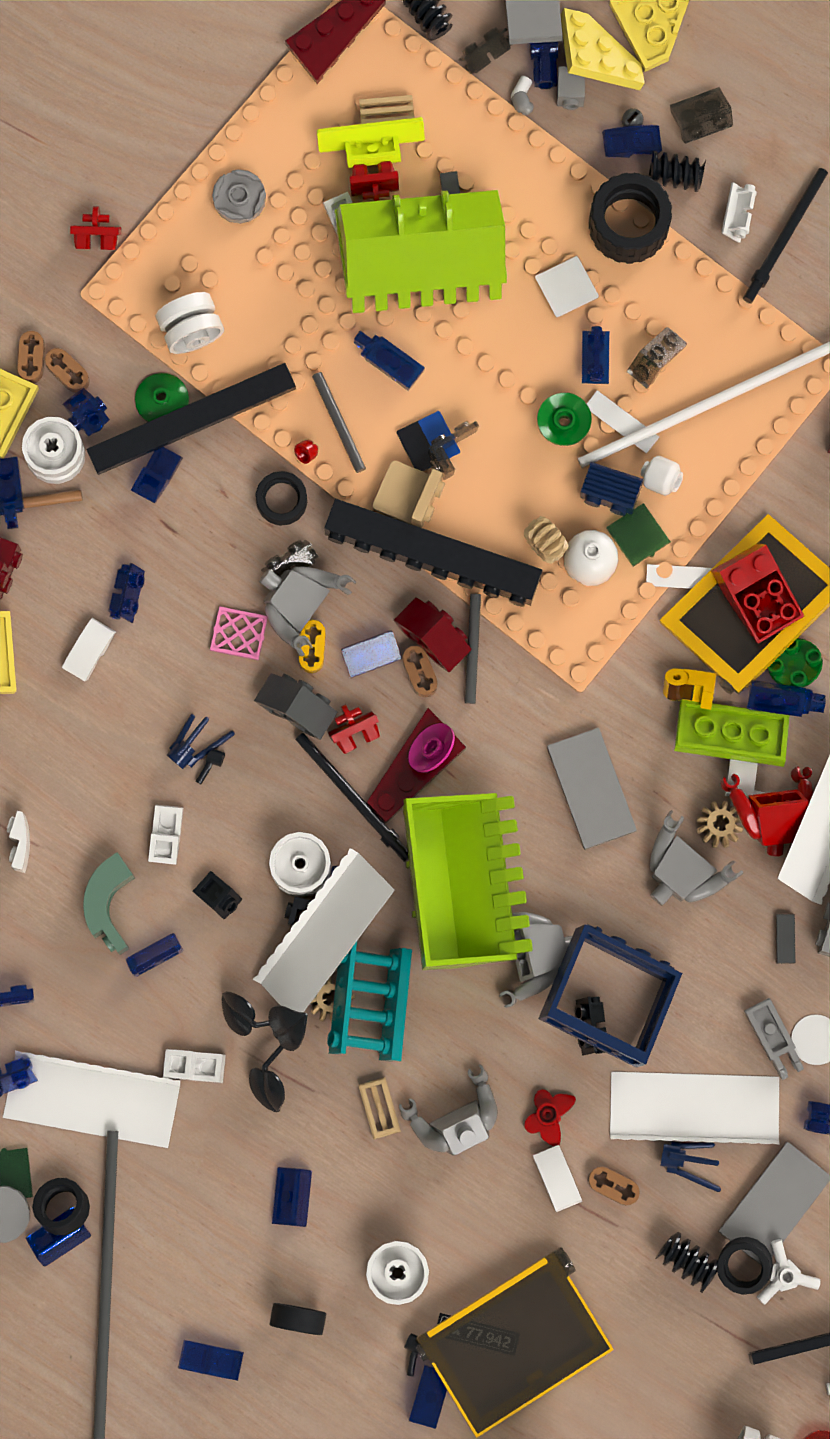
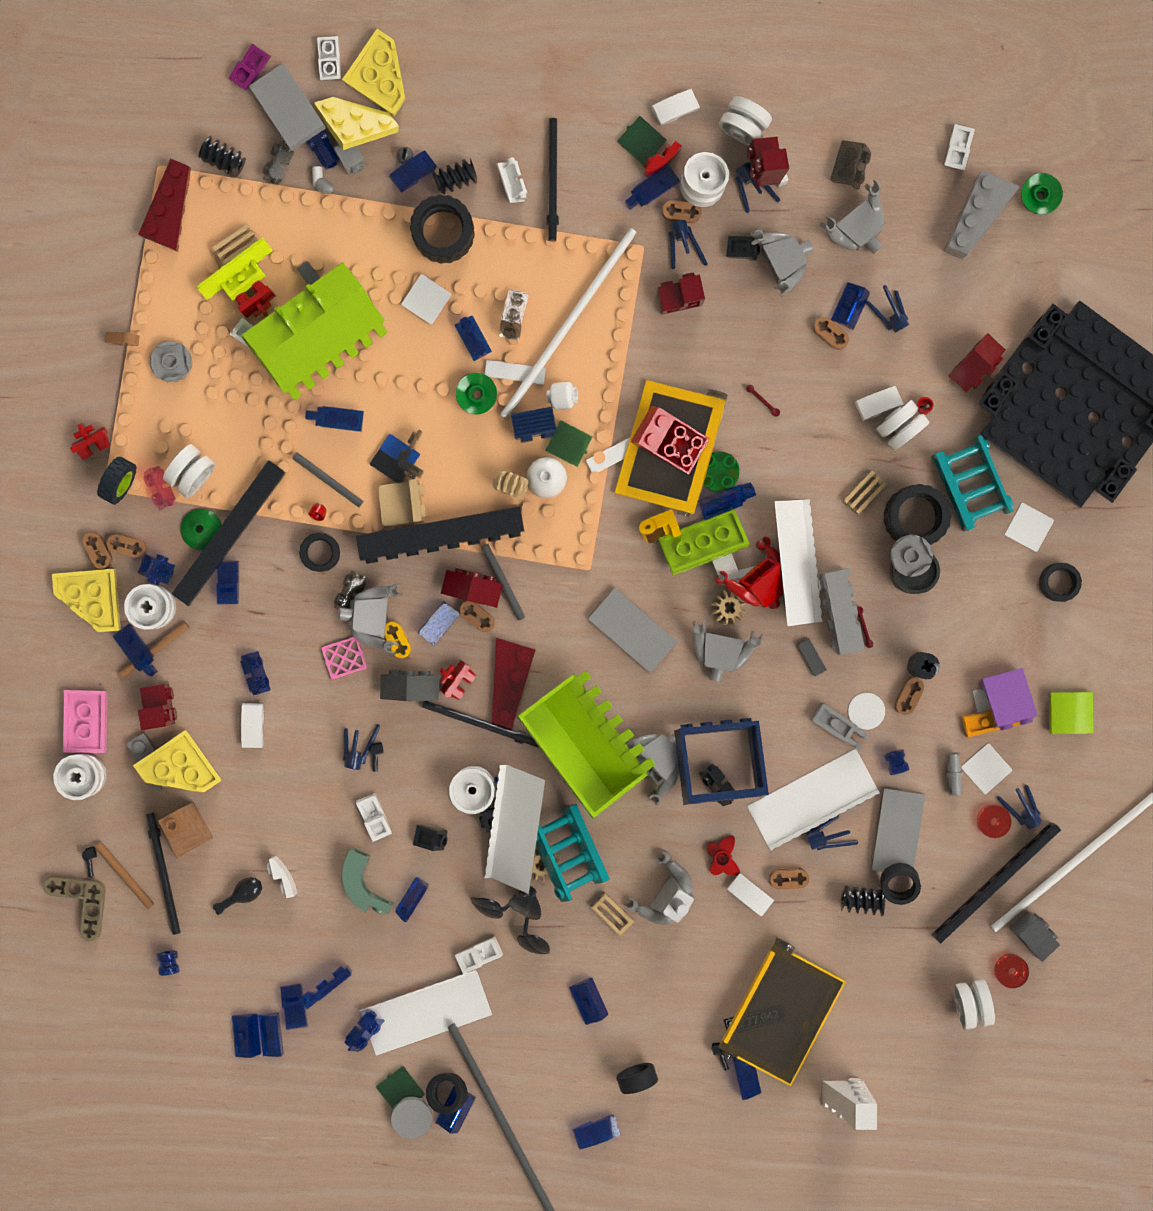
camera: 30 degrees left, 10 degrees up
(102, 288) = (116, 480): none -> black wheel
(139, 334) = (161, 496): none -> clear pink hinge
(199, 142) = (122, 339): none -> medium nougat beam
(402, 1289) = (675, 1004): white wheel -> none
(431, 747) = (514, 666): dark pink dish -> none
(702, 115) = (450, 125): clear smoke bracket -> none
(785, 1275) = (929, 874): white piece -> none

